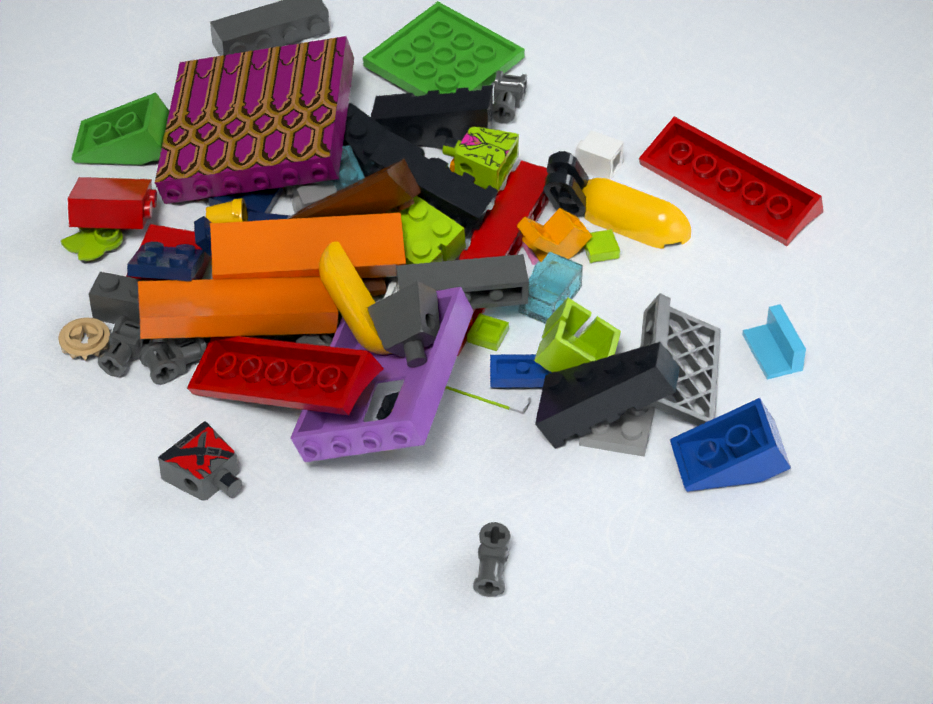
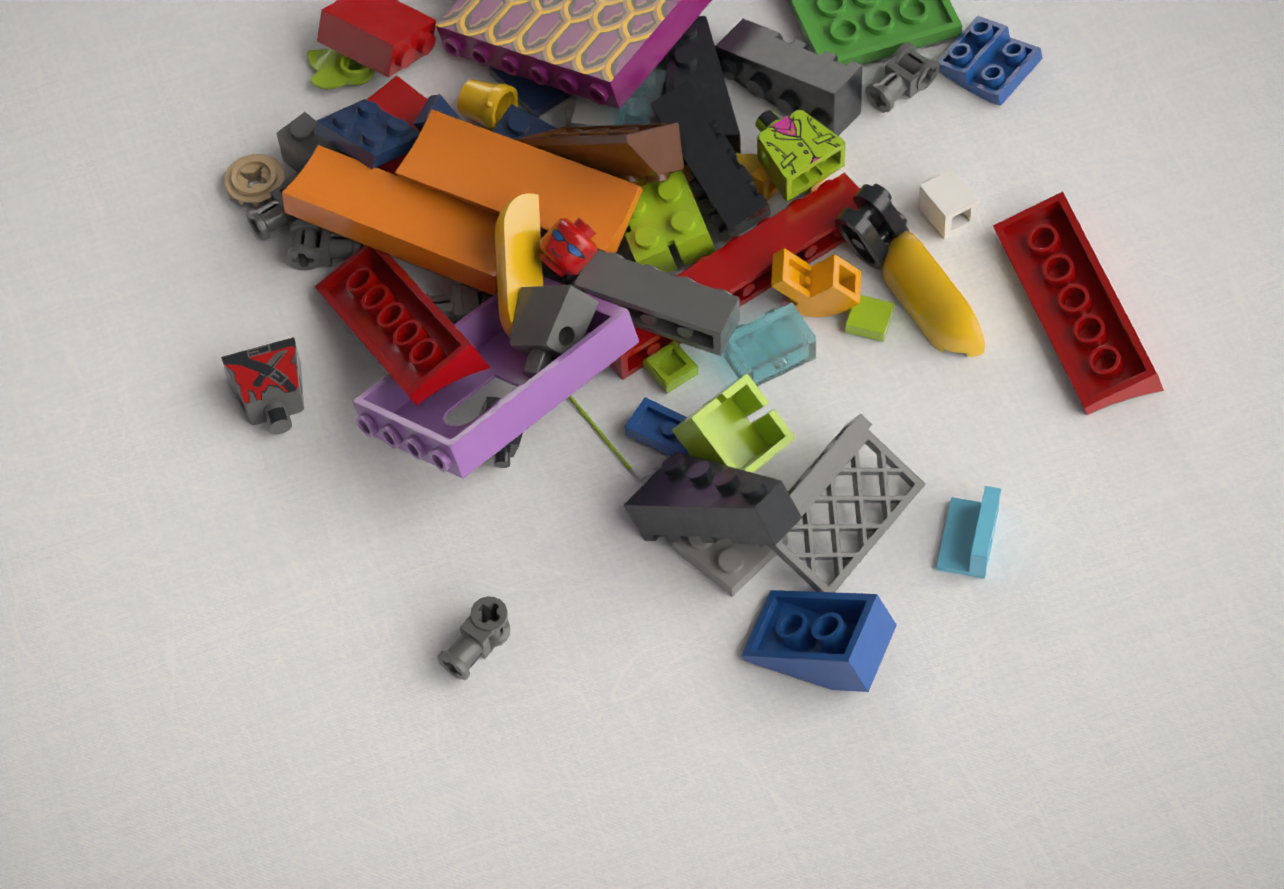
camera: 35 degrees right, 10 degrees up
(383, 267) = (568, 246): none -> red head
(555, 66) = (989, 60): none -> blue slope

